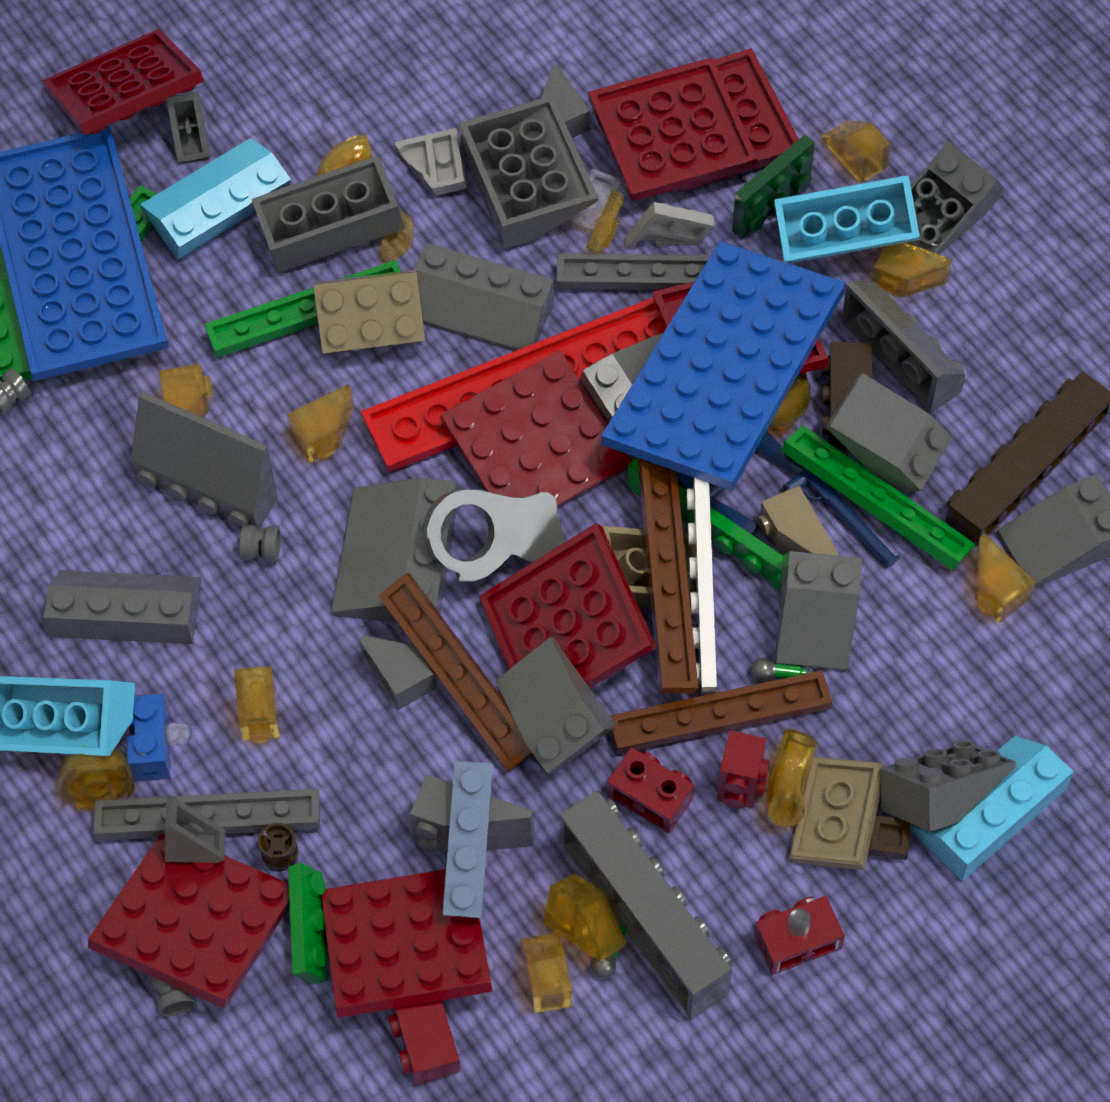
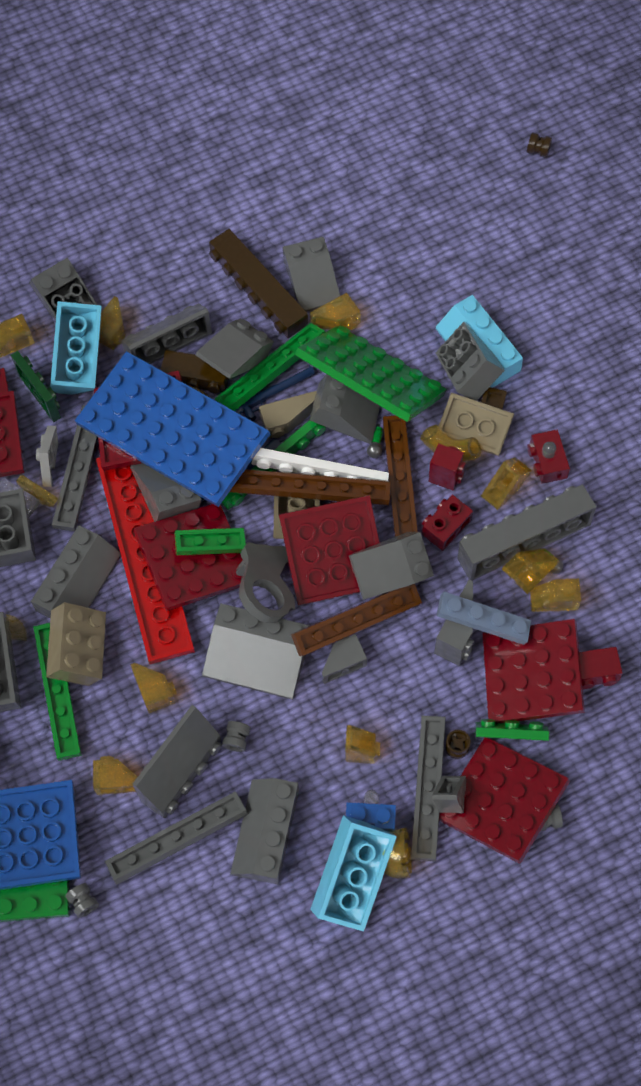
camera: 80 degrees left, 5 degrees up
(104, 492) = (176, 837): none -> dark grey plate
(553, 450) = (209, 541): none -> green plate
(740, 872) = (506, 482): none -> clear yellow slope
(885, 634) = (372, 372): none -> green plate

